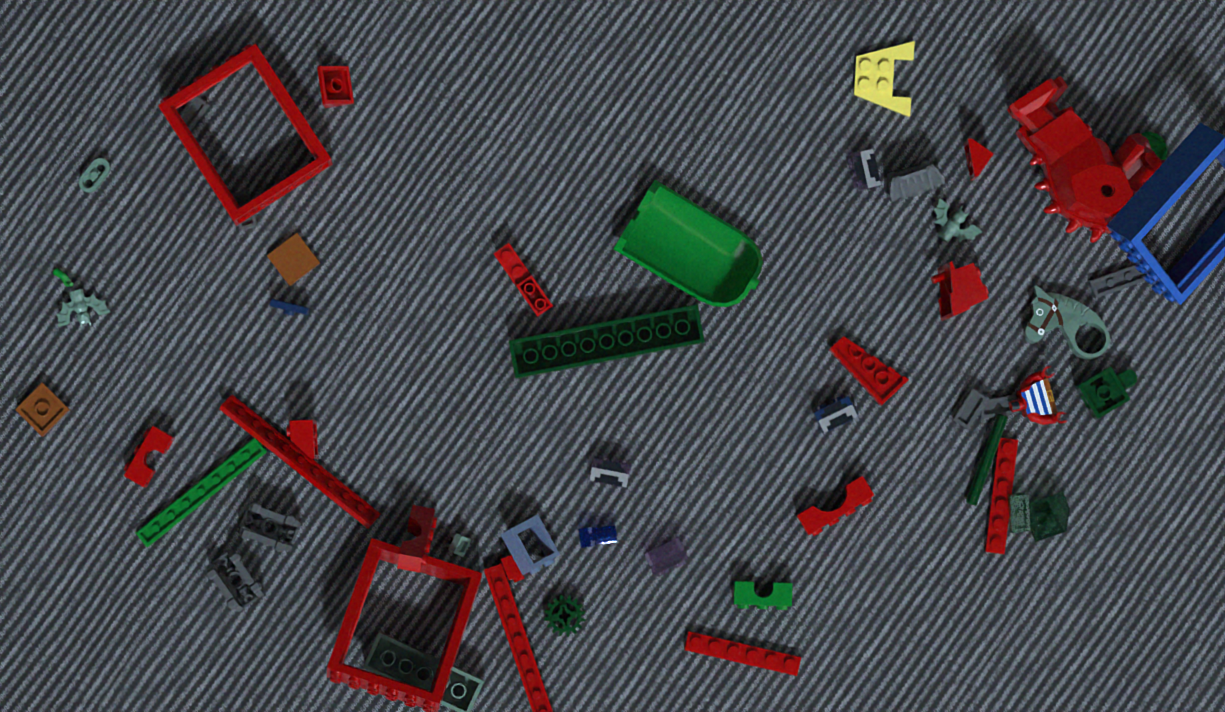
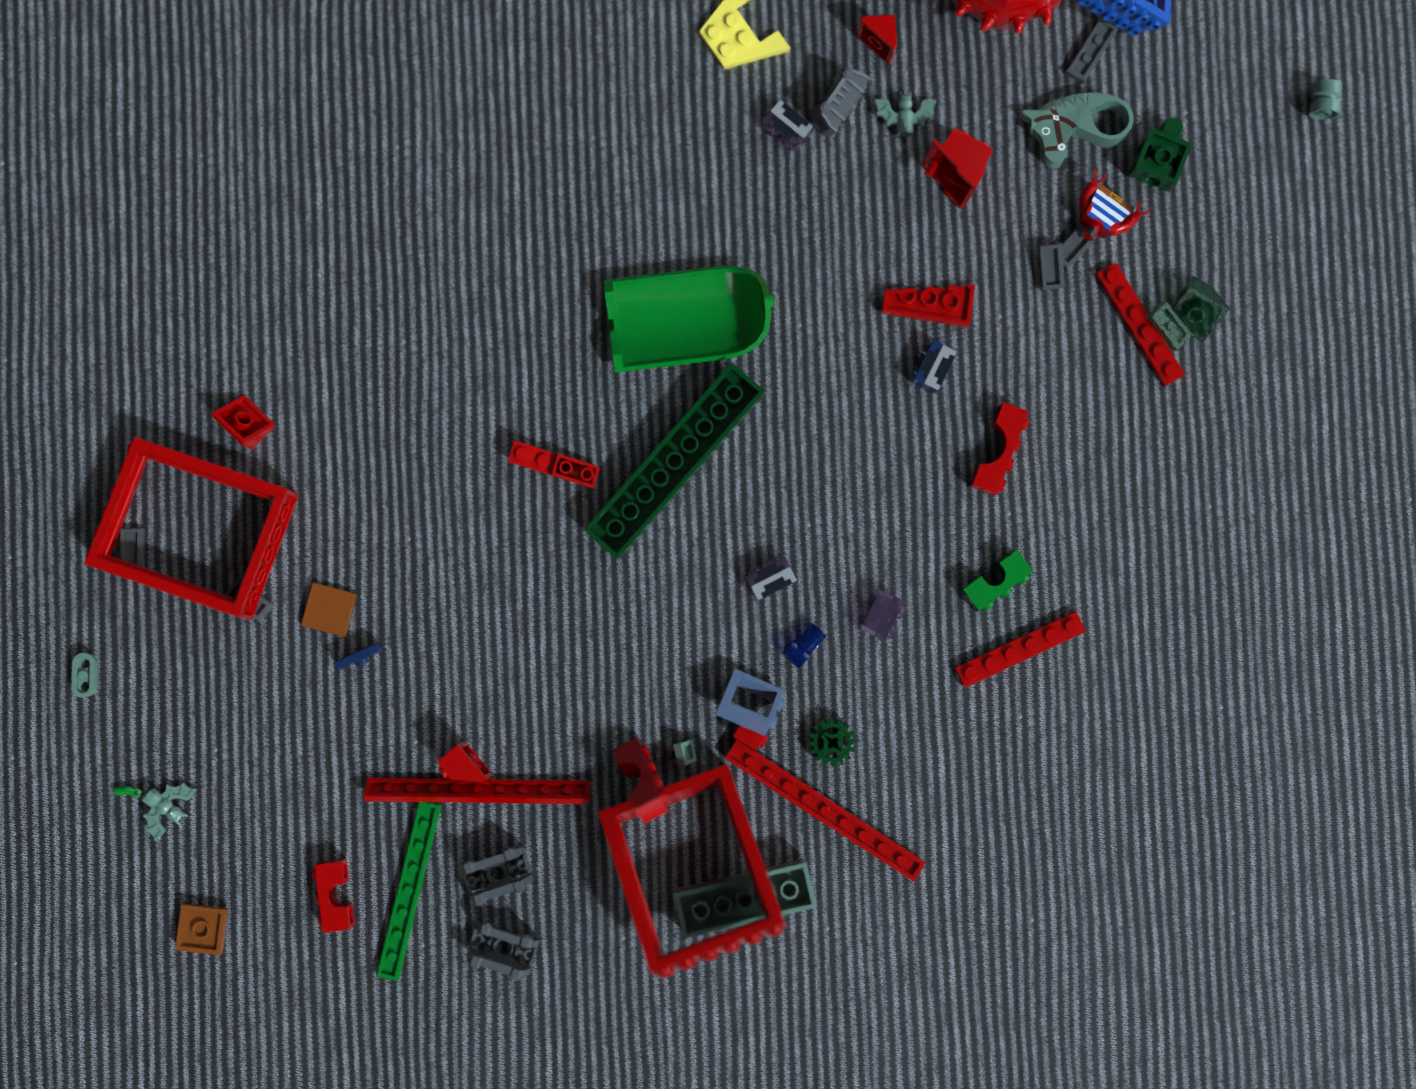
camera: 35 degrees left, 0 degrees up
(987, 459) = (1102, 301): dark green axle -> none

